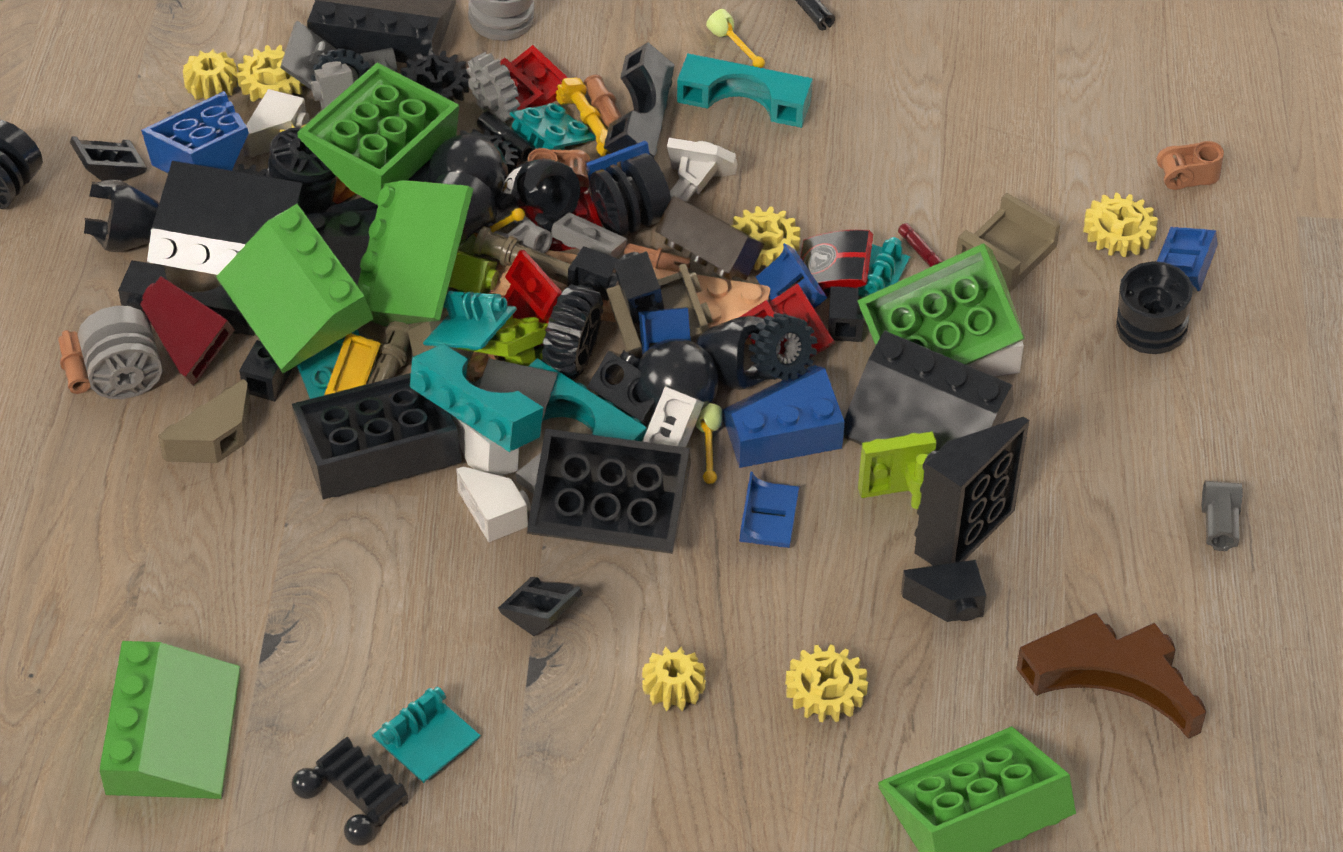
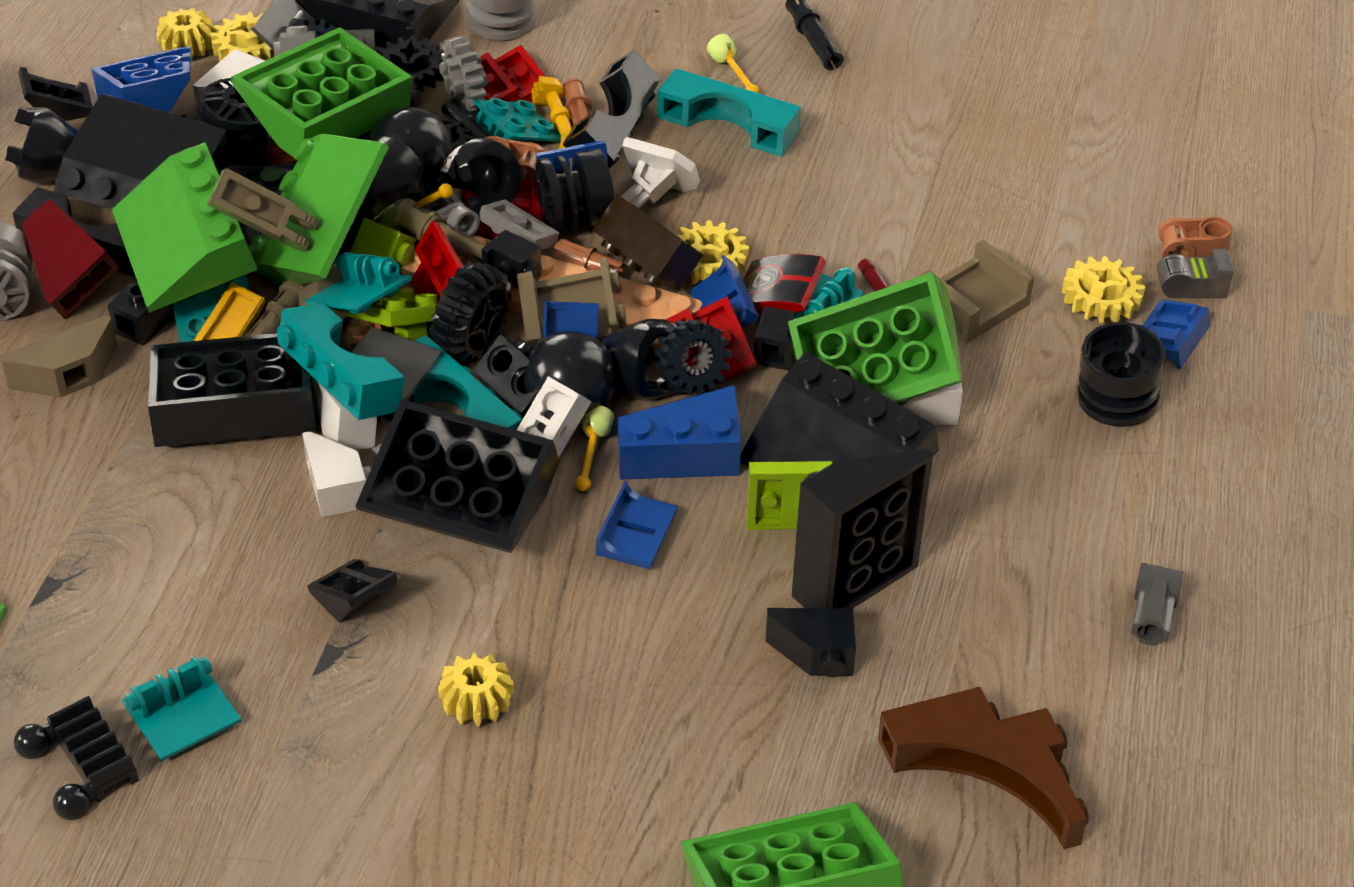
camera: 10 degrees right, 5 degrees down
(370, 265) = (260, 209): none -> dark tan hinge
(638, 284) = (548, 270): black brick -> none
(827, 685) = (649, 720): light yellow gear -> none
(1198, 199) = (1196, 275): none -> flat silver leg

